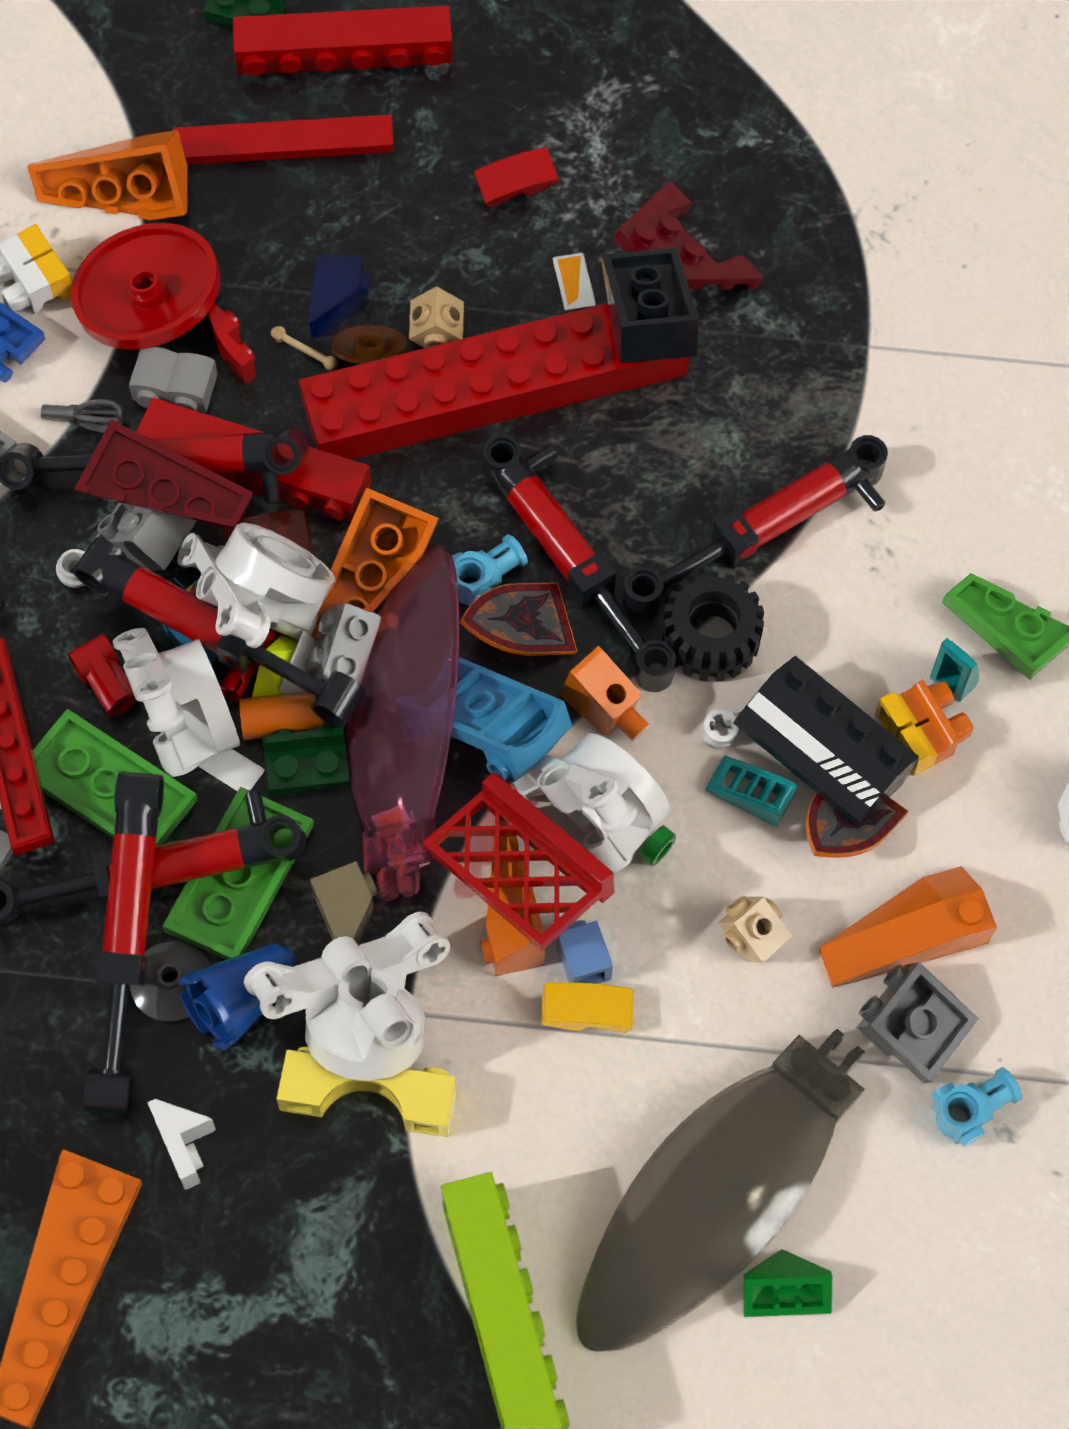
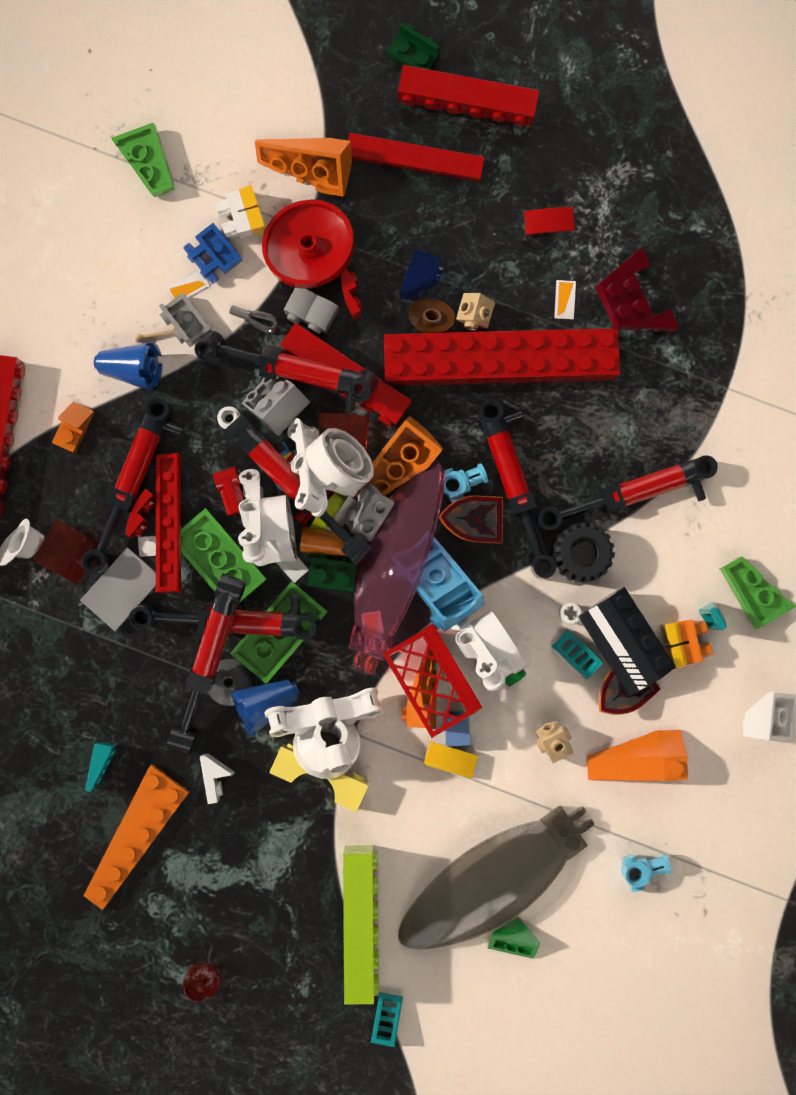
camera: 10 degrees right, 20 degrees up
(153, 477) = (279, 382): dark red wing -> none
(279, 335) = (380, 291): tan hinge -> none
(345, 900) = (333, 666): dark tan slope -> none
(604, 695) = (504, 573): orange torso -> none
(650, 305) = (604, 343): black slope -> none
(916, 1020) = (627, 815): dark grey plate -> none

